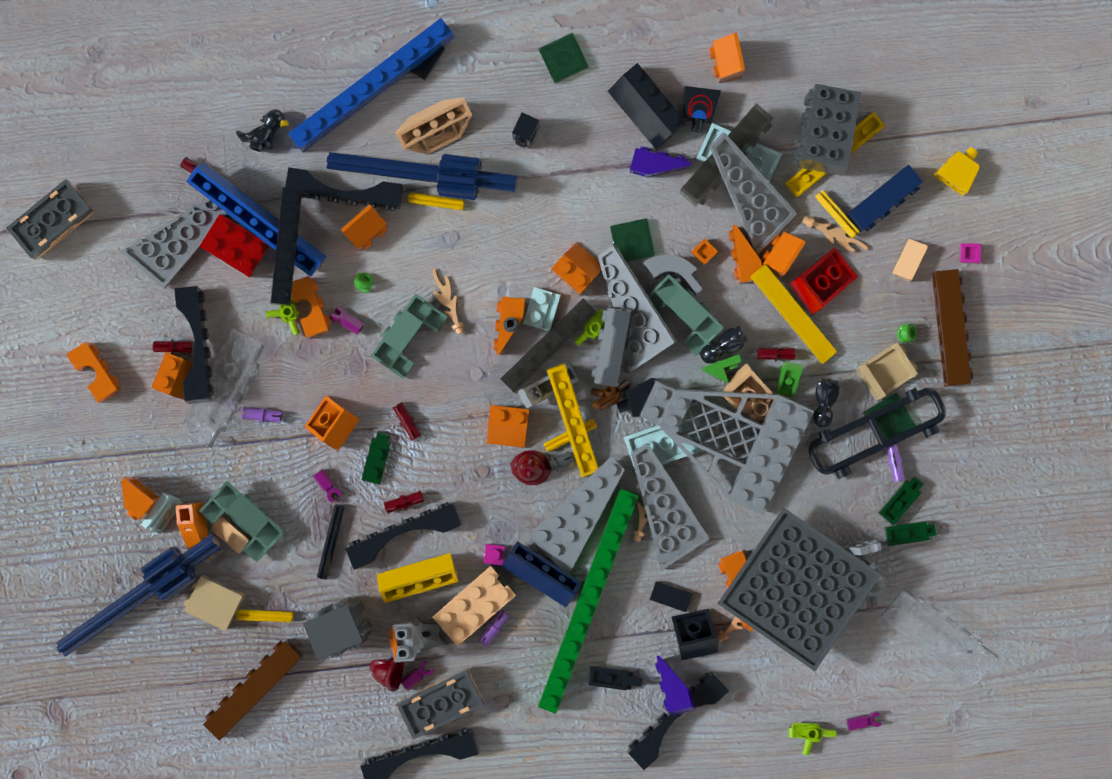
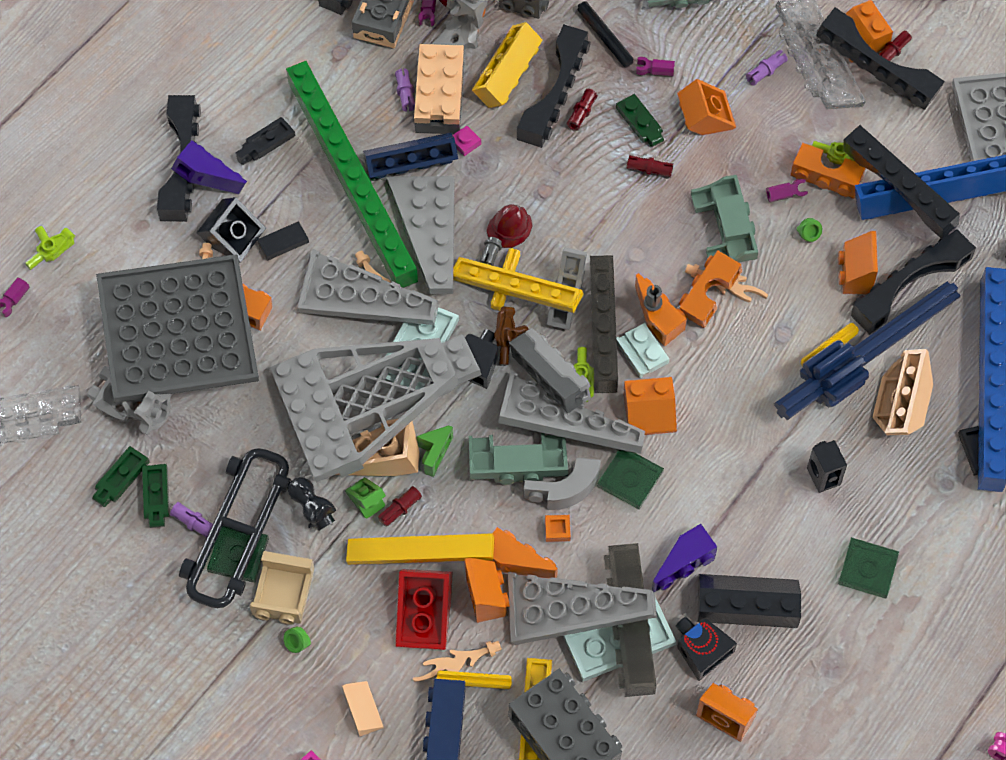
camera: 130 degrees right, 25 degrees down
(234, 245) = (940, 147): red brick -> none
(449, 305) = (718, 271): none -> orange arch
(507, 426) = (567, 231): orange slope -> none
(729, 342) = (451, 469): black animal -> none
(951, 327) = (260, 683): reddish brown brick -> none

